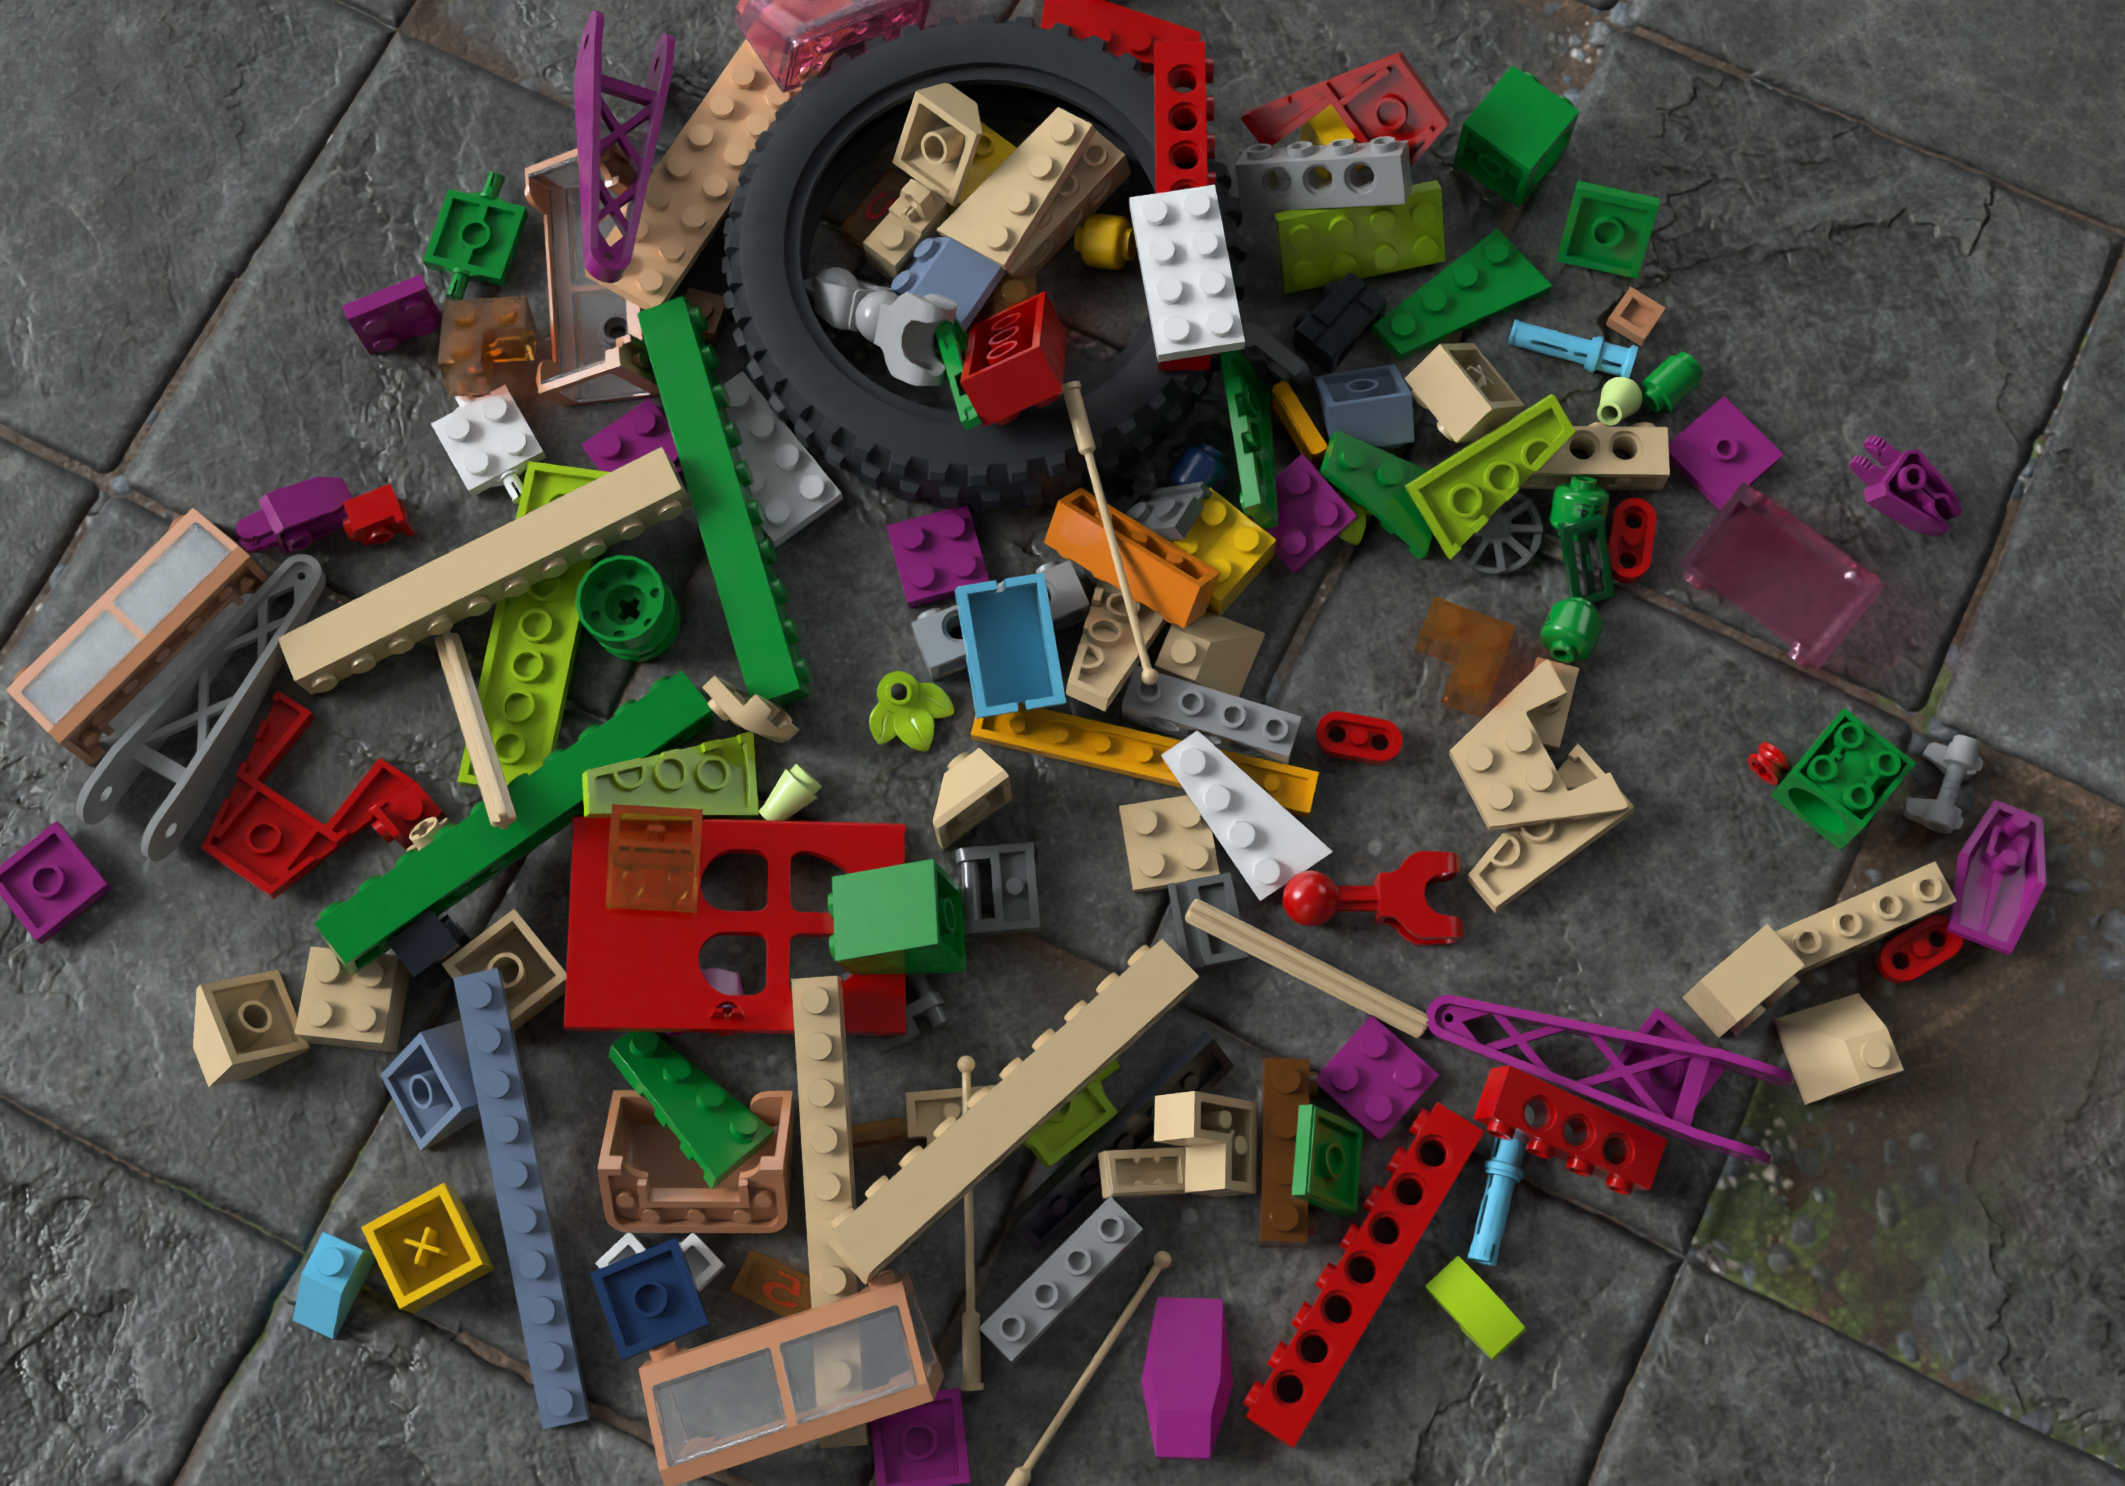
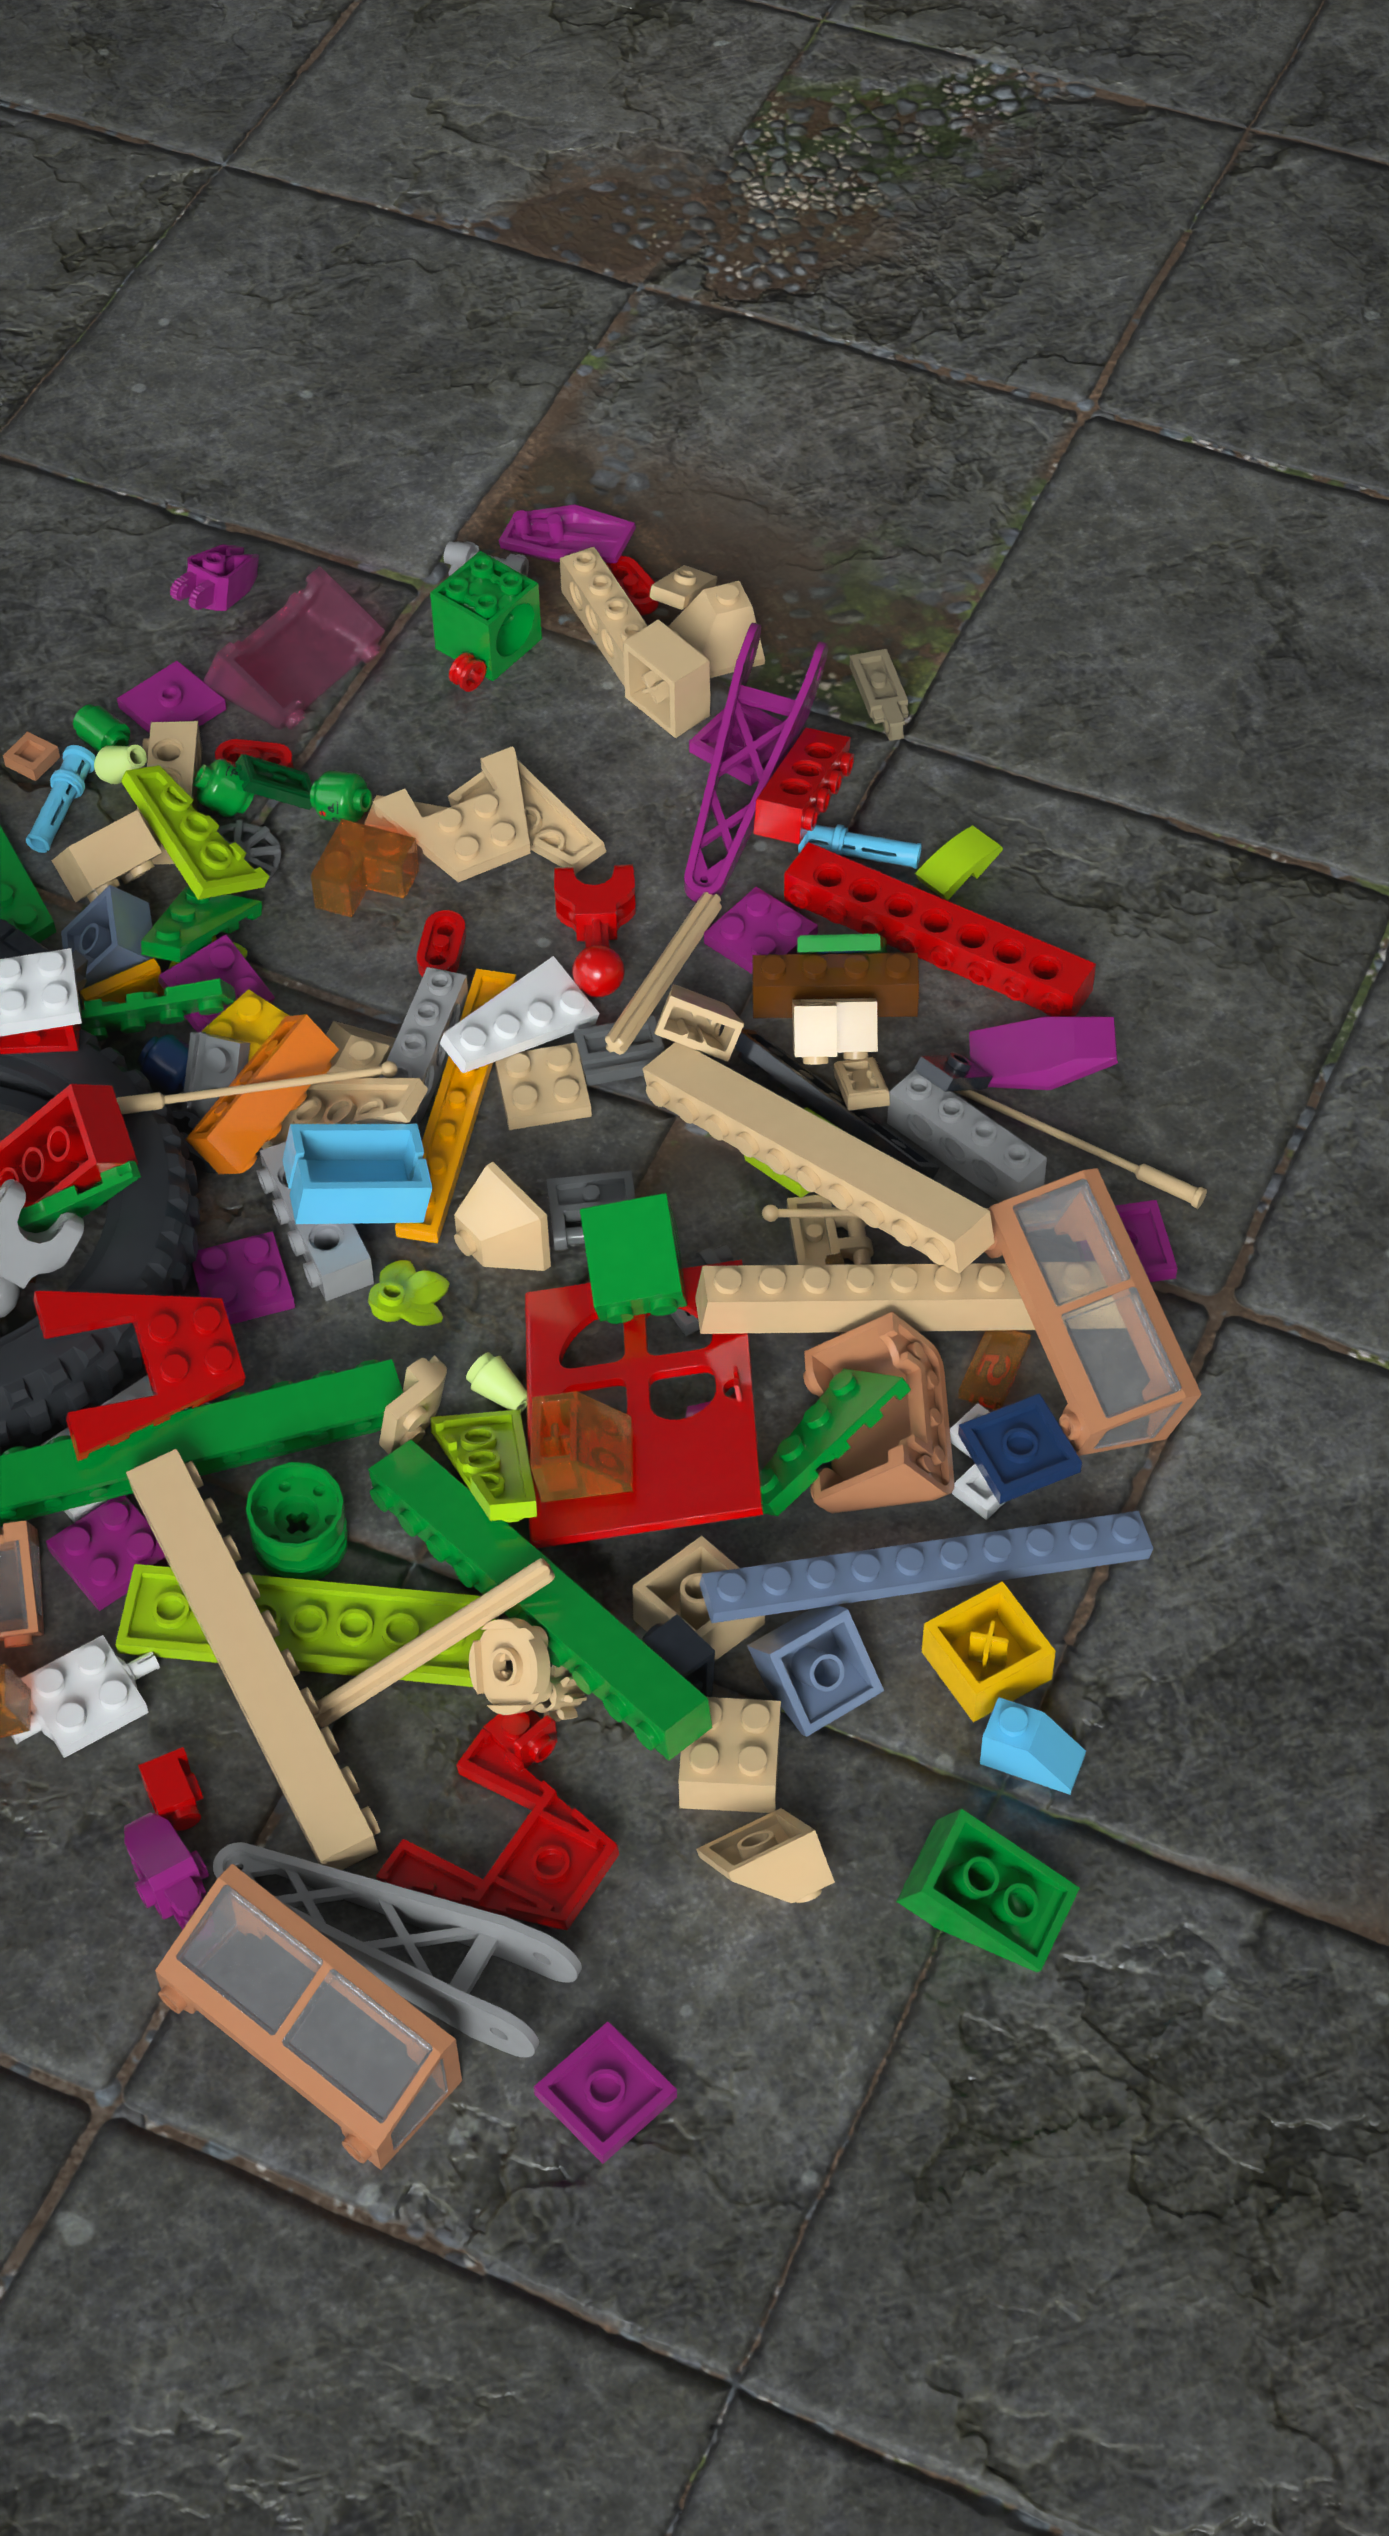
camera: 95 degrees left, 20 degrees down
(188, 1227) = (988, 1891): none -> green slope
(442, 800) = (527, 1649): none -> tan plate
(798, 490) = (182, 1344): none -> red wing
(1141, 1271) = (953, 1072): none -> black plate
(1222, 997) = (696, 1023): none -> tan torso
(1749, 1236) = (881, 690): none -> dark tan hinge
(1912, 1009) = (681, 586): none -> tan plate

